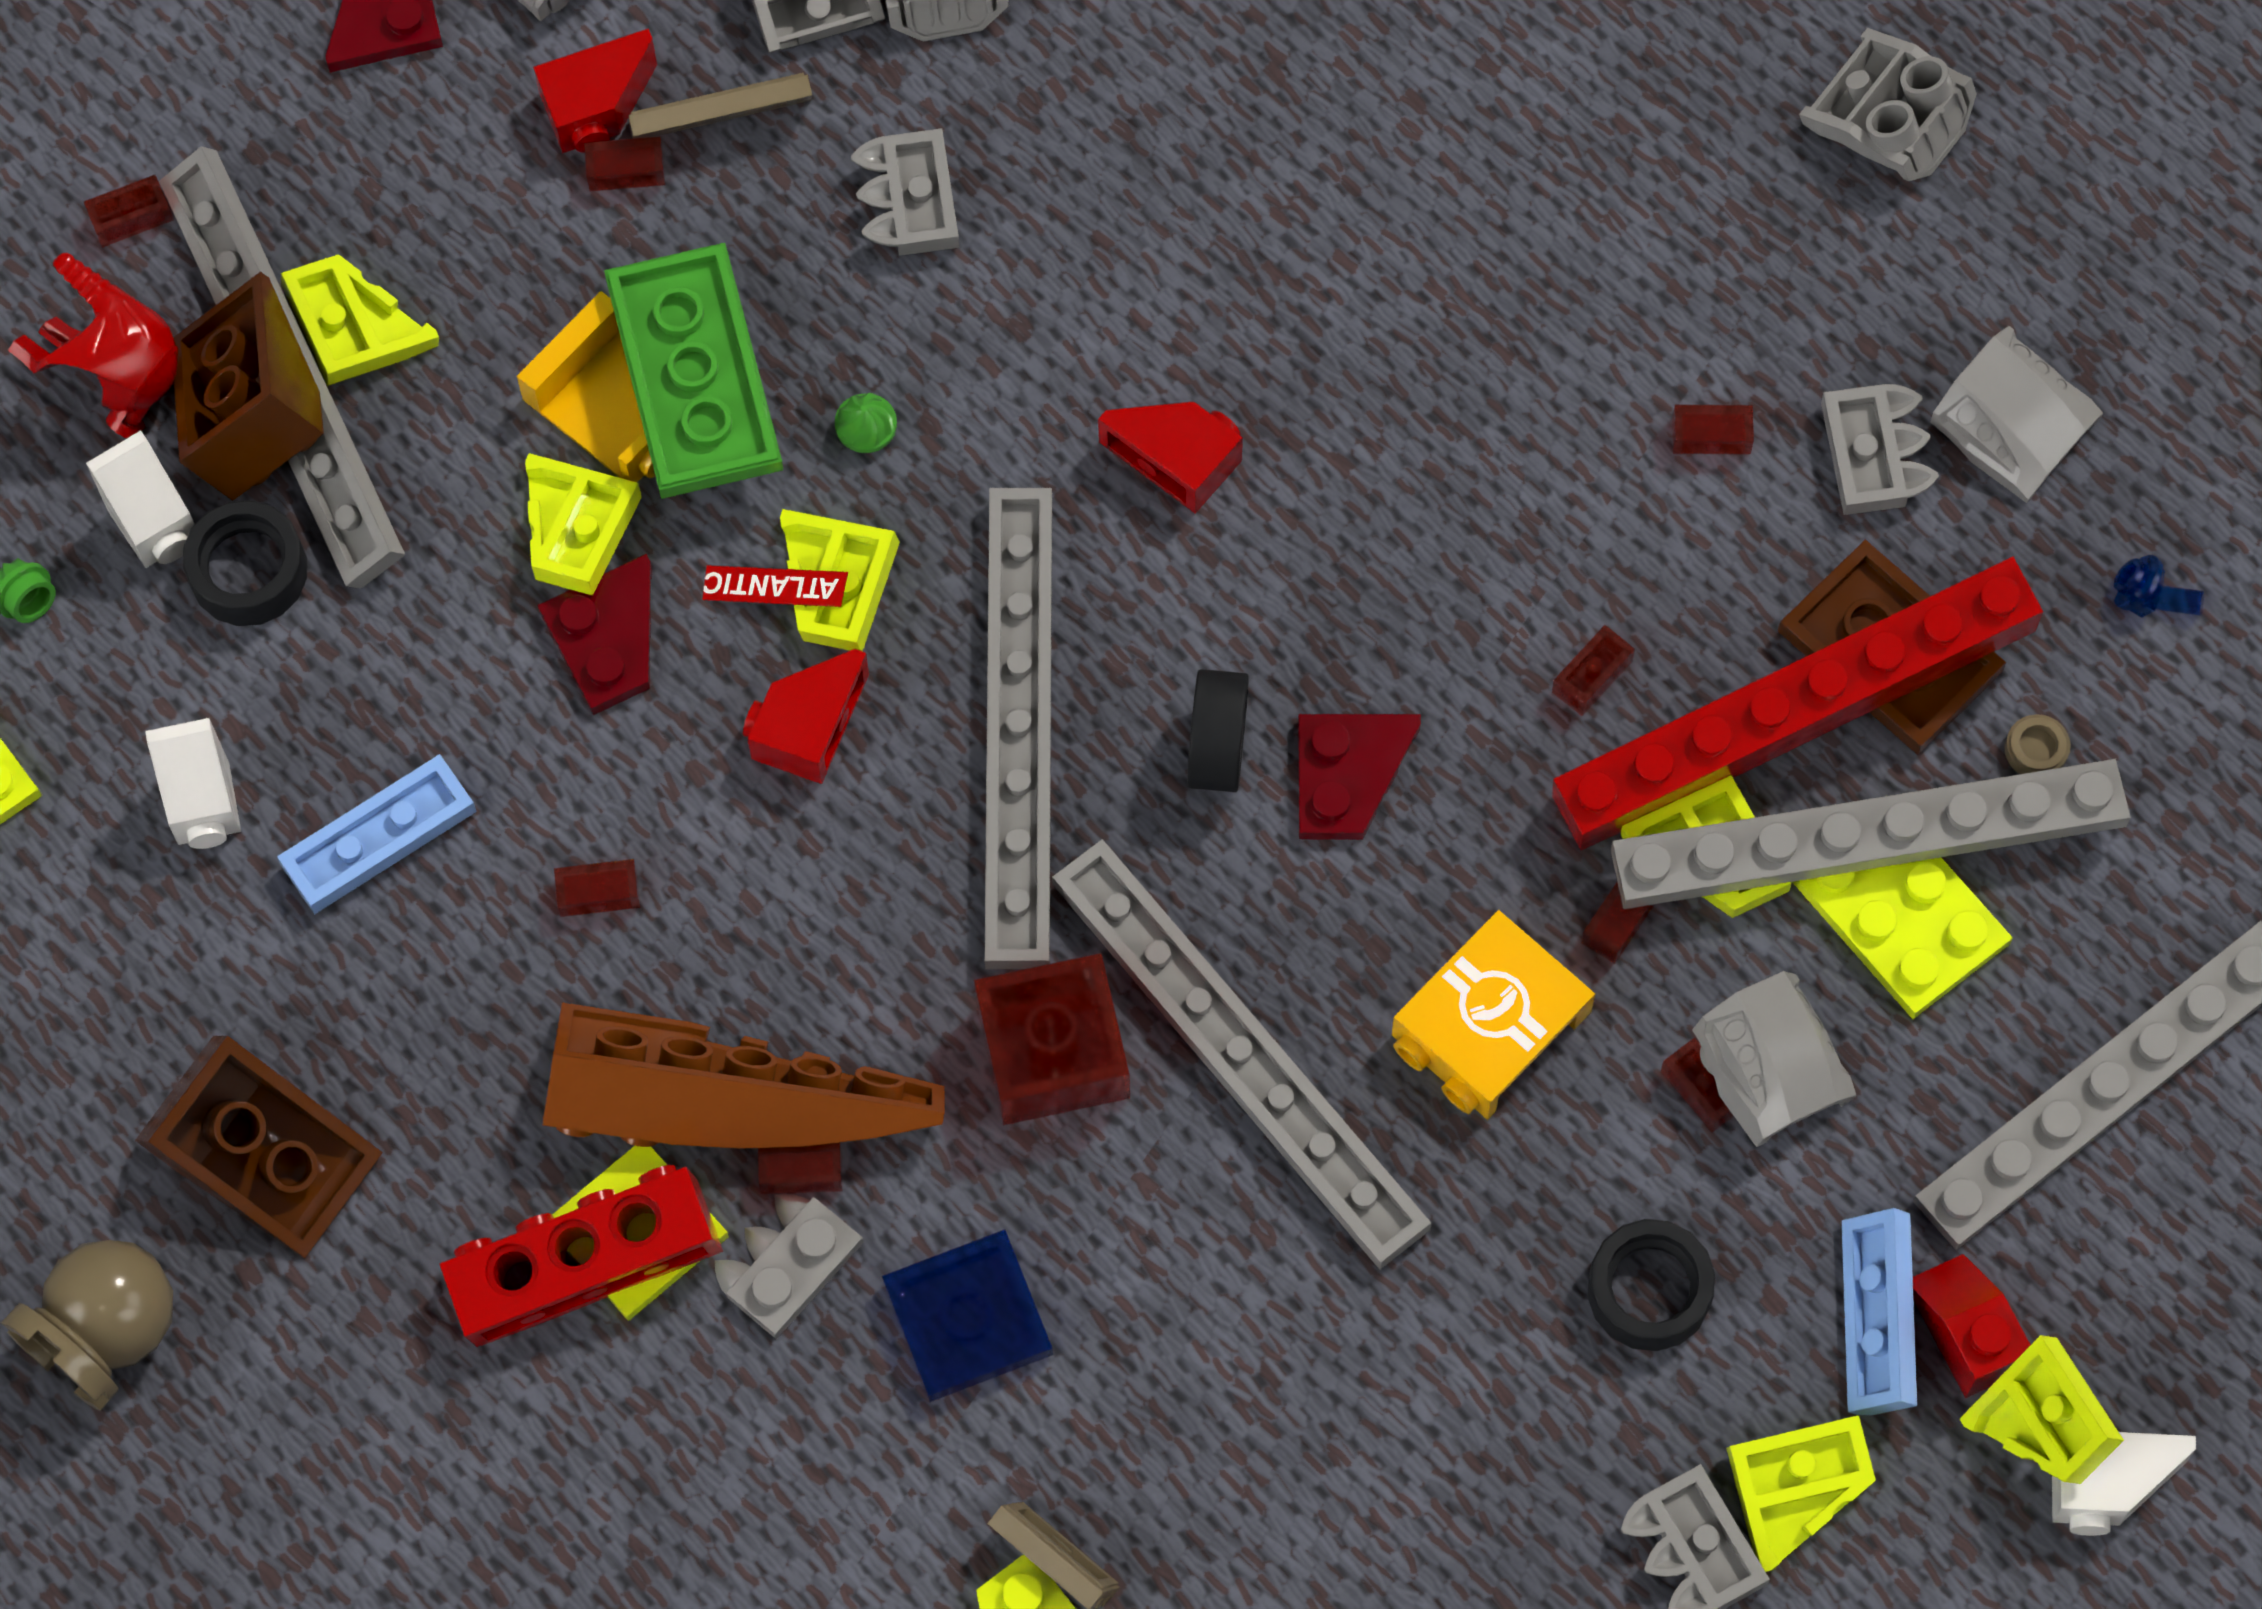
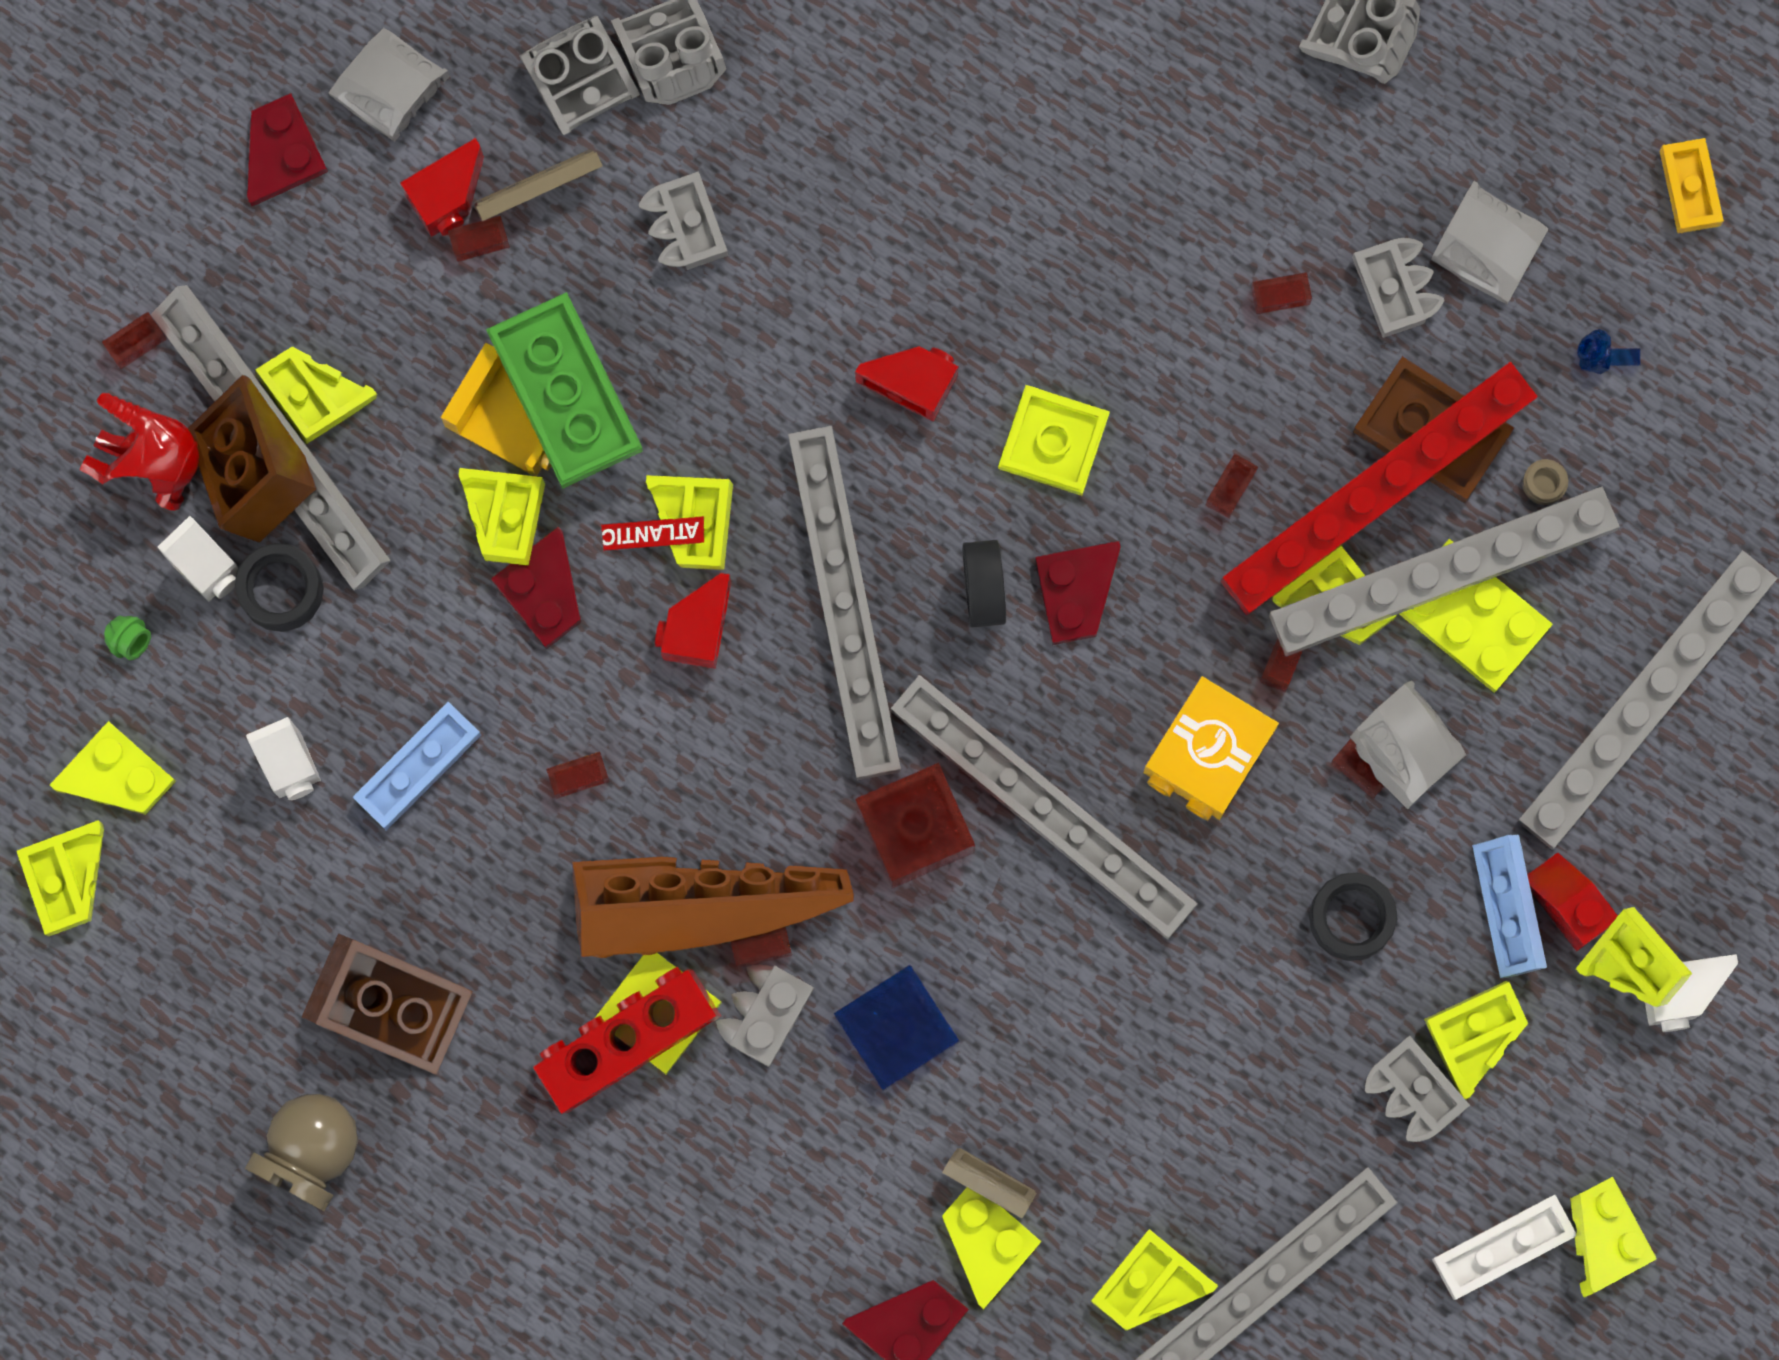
camera: 10 degrees left, 10 degrees up
(865, 423) = (690, 400): bright green plate -> none
(1357, 566) = (1053, 440): none -> neon yellow tile

